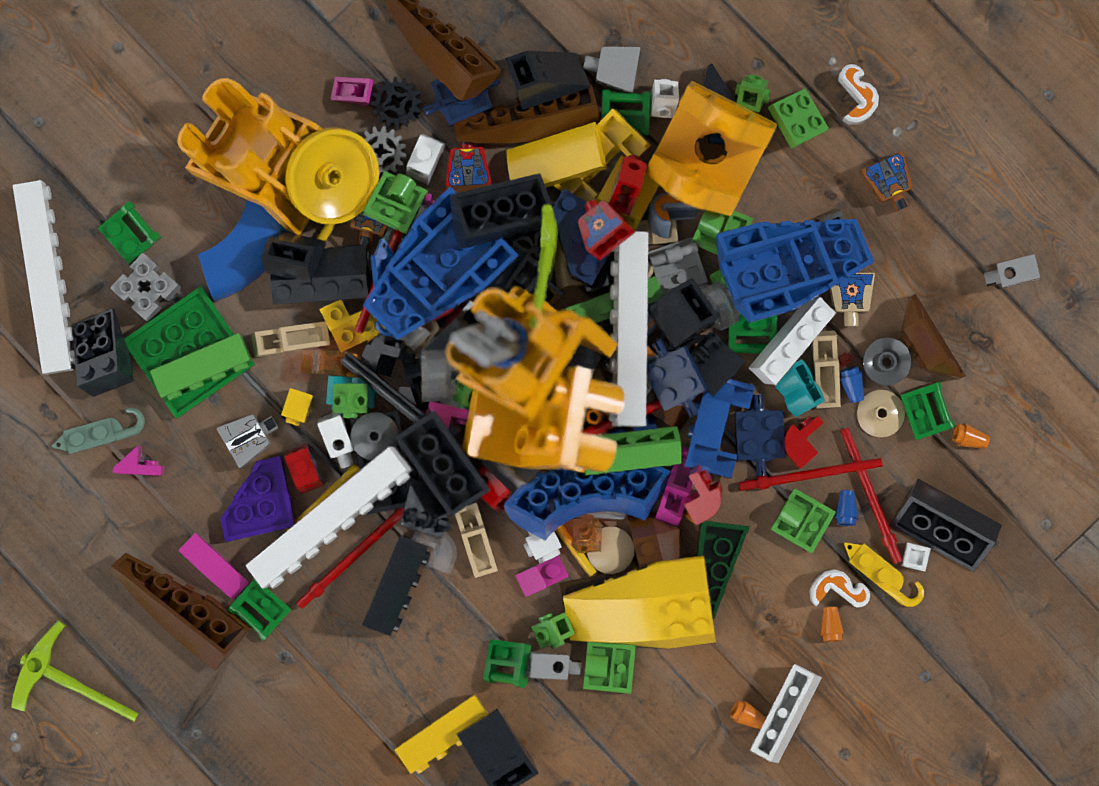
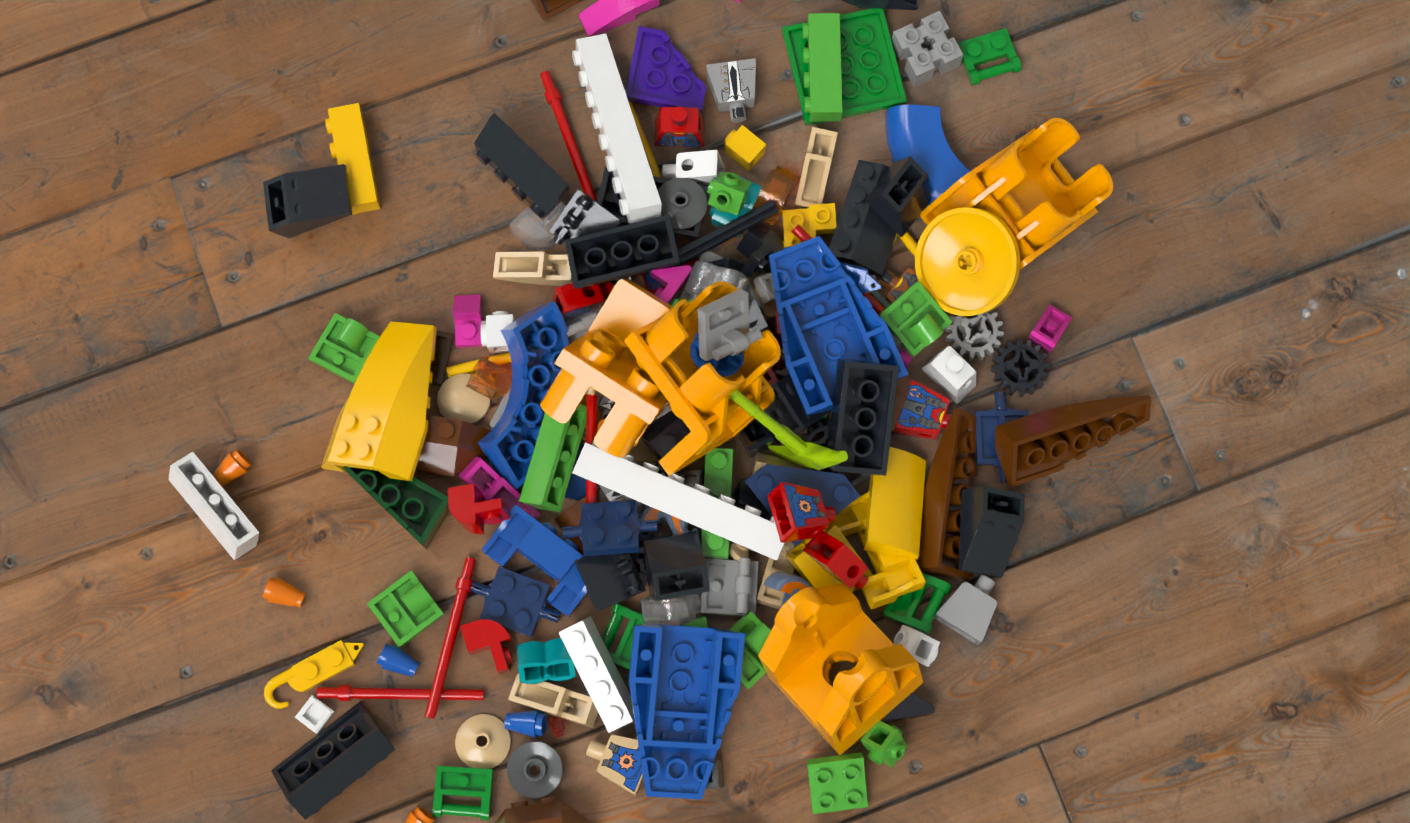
camera: 110 degrees right, 10 degrees down
(265, 603) = (559, 42): green plate -> none
(509, 655) = (399, 252): green plate -> none
(541, 665) = (372, 277): light grey torso -> none
(553, 630) = (407, 305): bright green brick -> none
(841, 584) = (321, 620): white animal -> none

